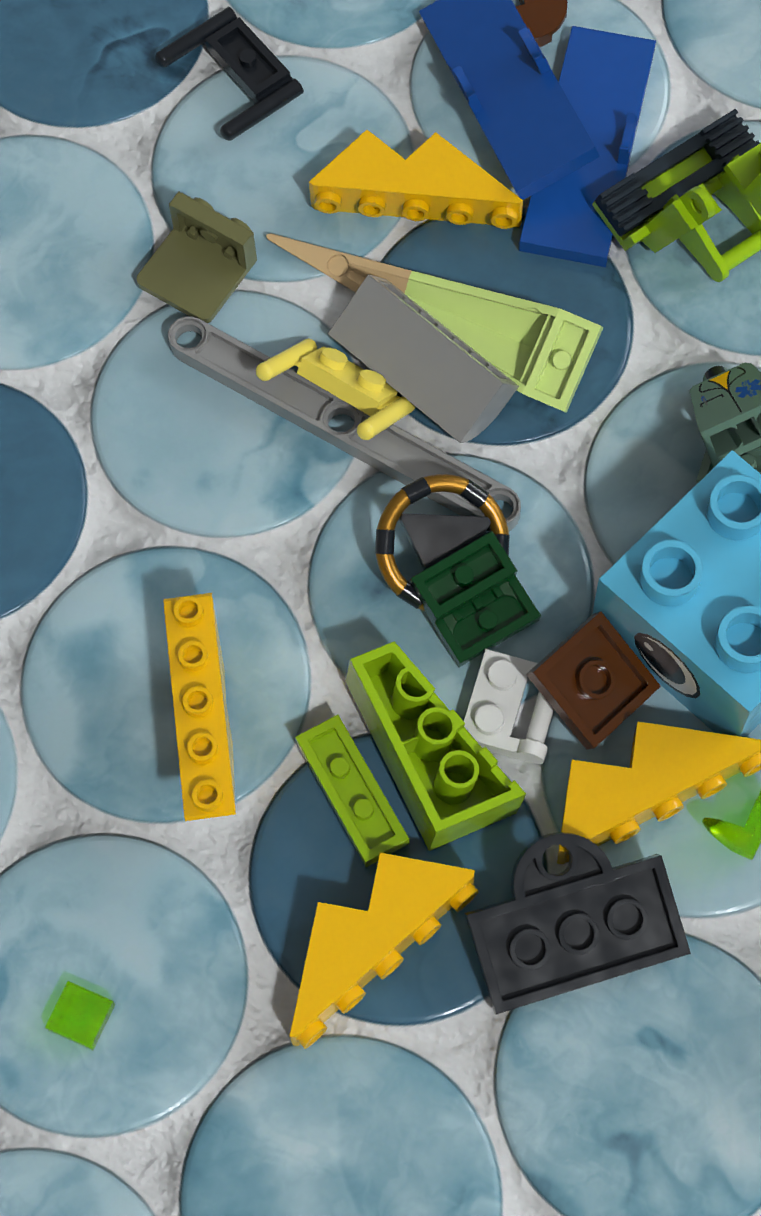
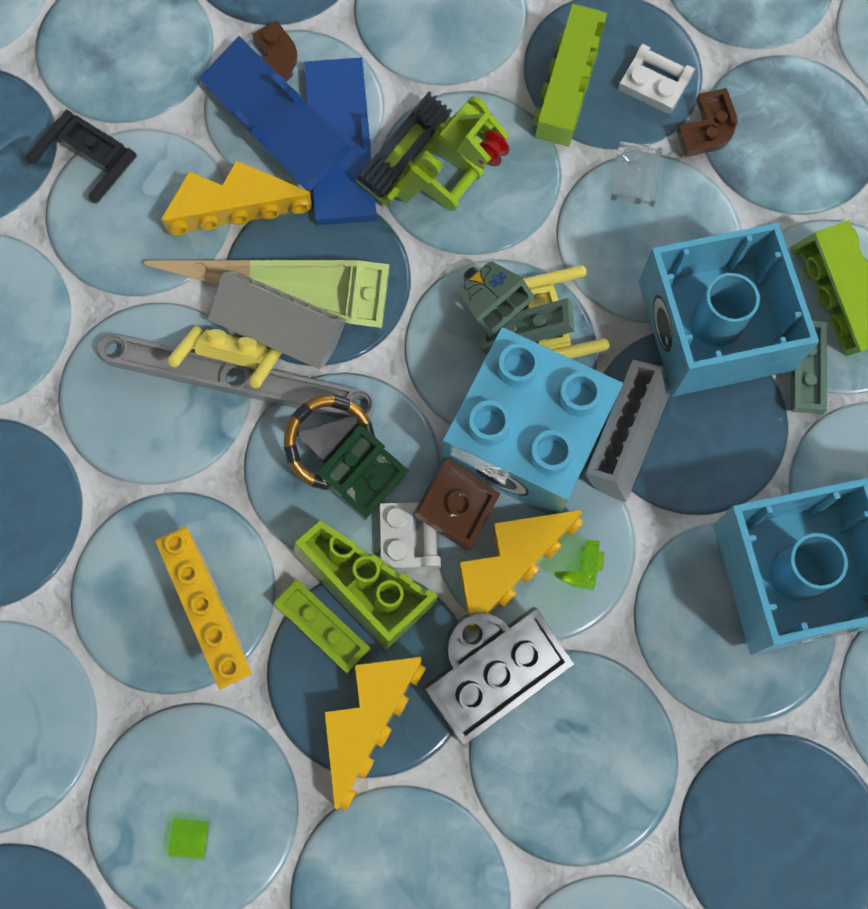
camera: 25 degrees left, 5 degrees up
(199, 259) = (102, 293): olive bracket -> none

